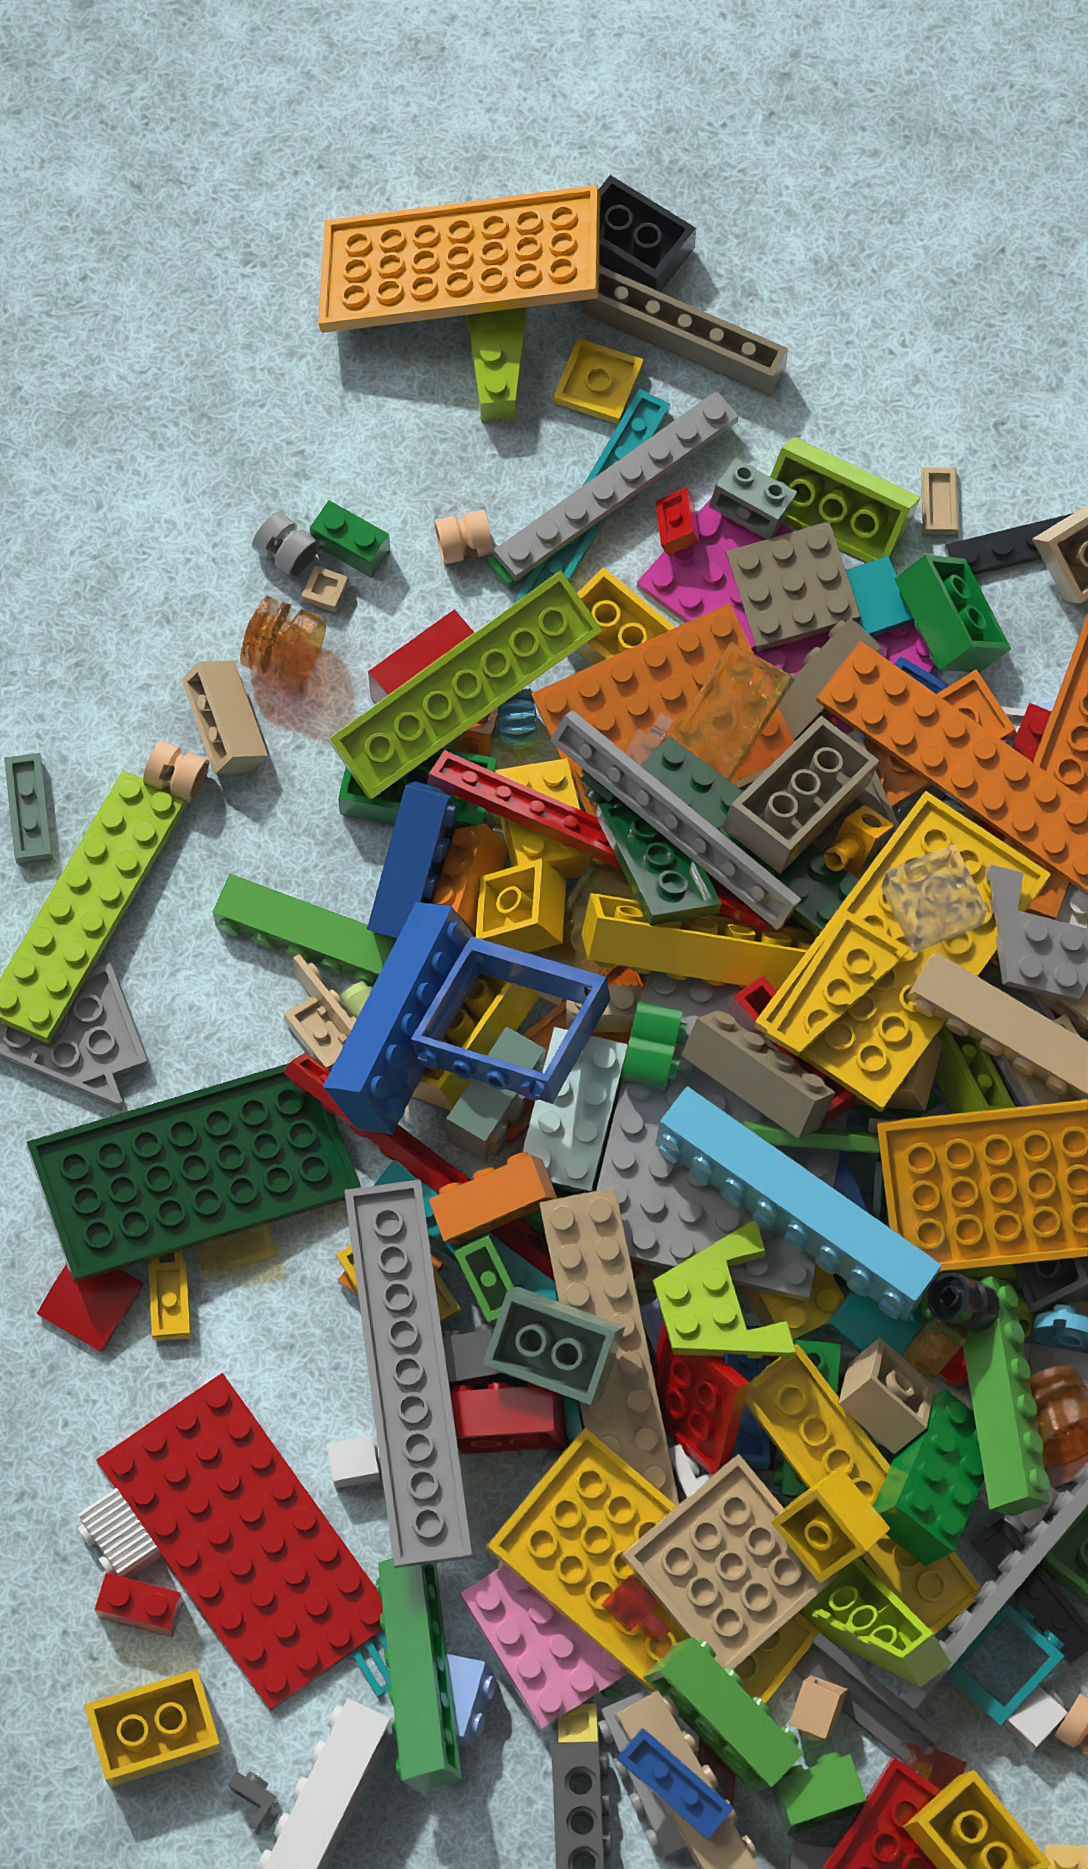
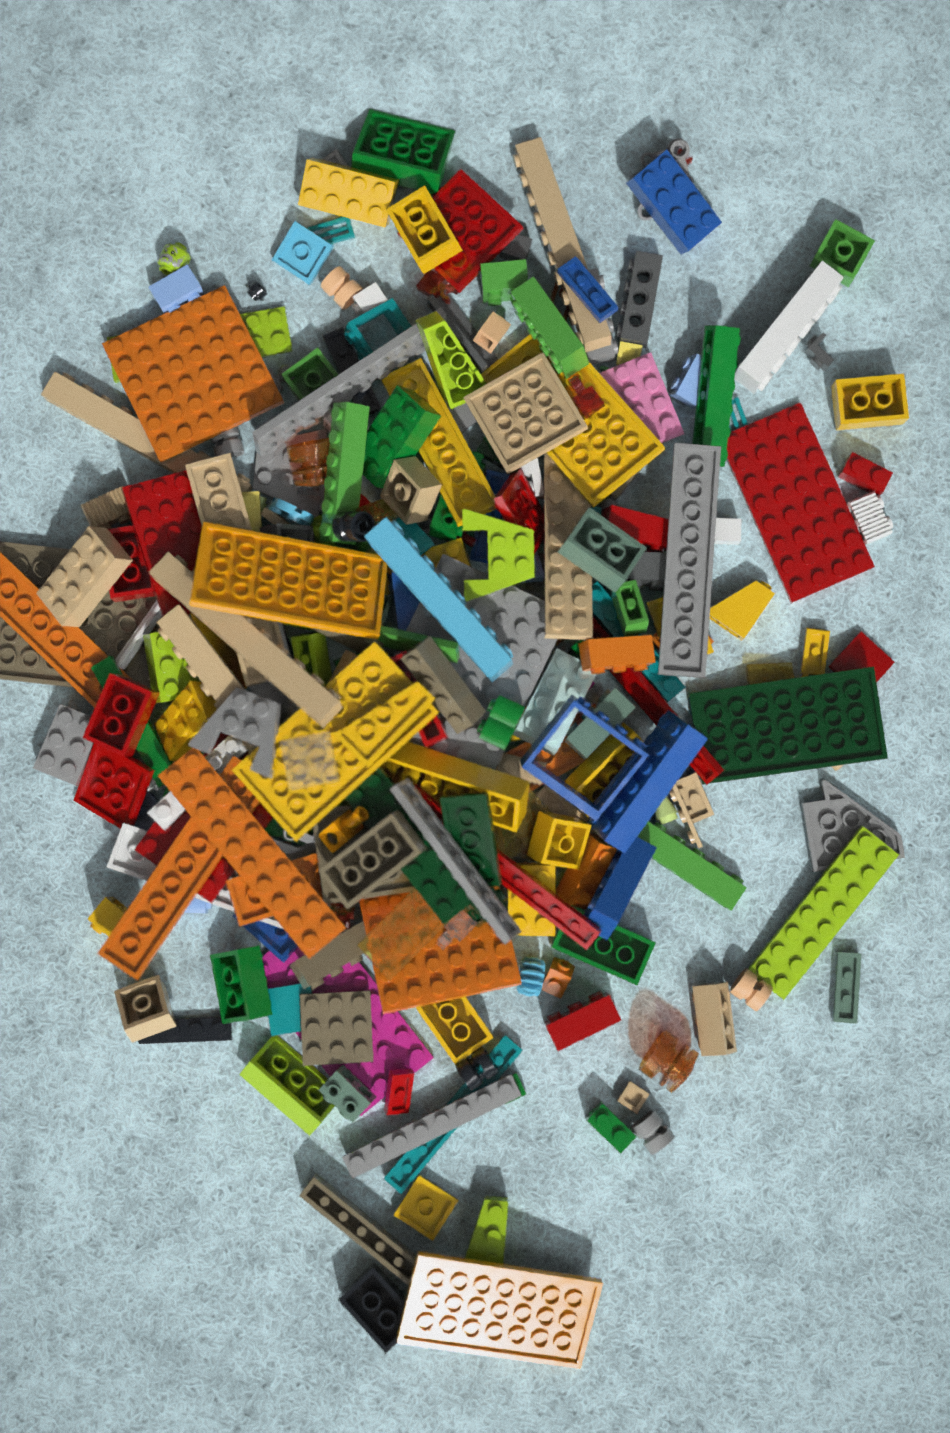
camera: 170 degrees left, 15 degrees up
(303, 1341) = (742, 609): none -> yellow slope
(463, 537) = (537, 1112): light nougat wheel -> none
(464, 685) = (562, 996): lime plate -> none
(576, 562) = (469, 1071): none -> black wheel
(830, 1525) = (463, 415): yellow brick -> none
(939, 501) = (226, 1072): tan tile -> none

